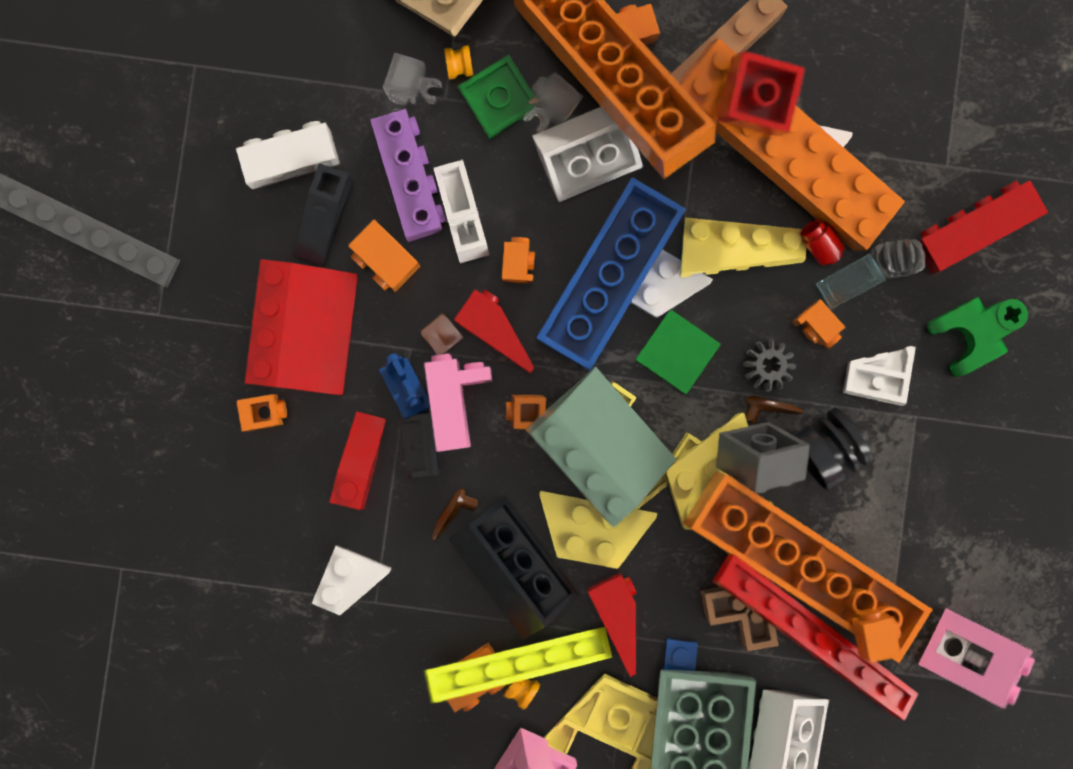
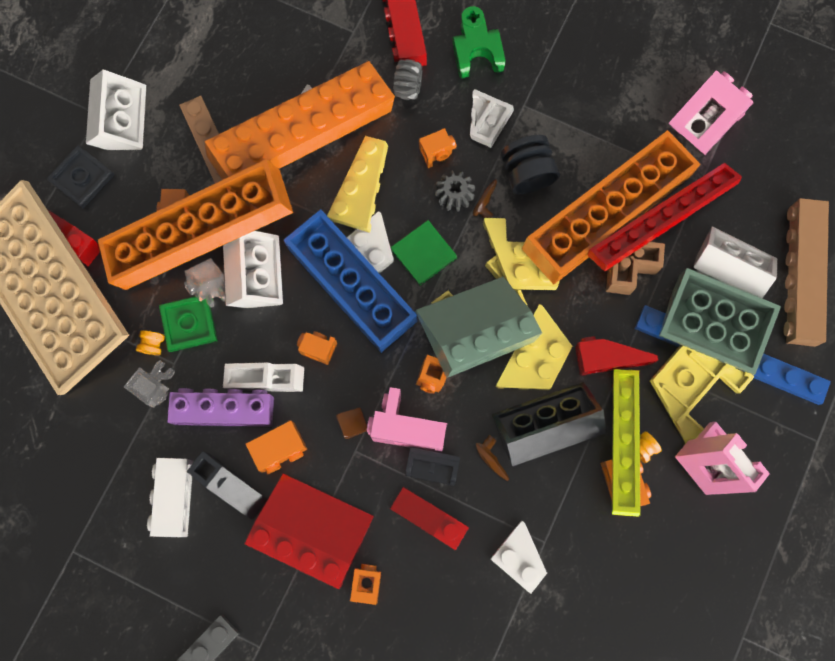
camera: 65 degrees left, 10 degrees down
(404, 386) = (383, 463): blue hinge -> none
(489, 323) = (359, 381): red slope -> none
(760, 94) = (256, 122): red brick -> none
(762, 456) = (521, 210): dark grey brick -> none
(822, 242) = (378, 126): red brick -> none
(850, 281) = (413, 115): clear light blue tile -> none
(876, 636) = (678, 170): orange brick -> none

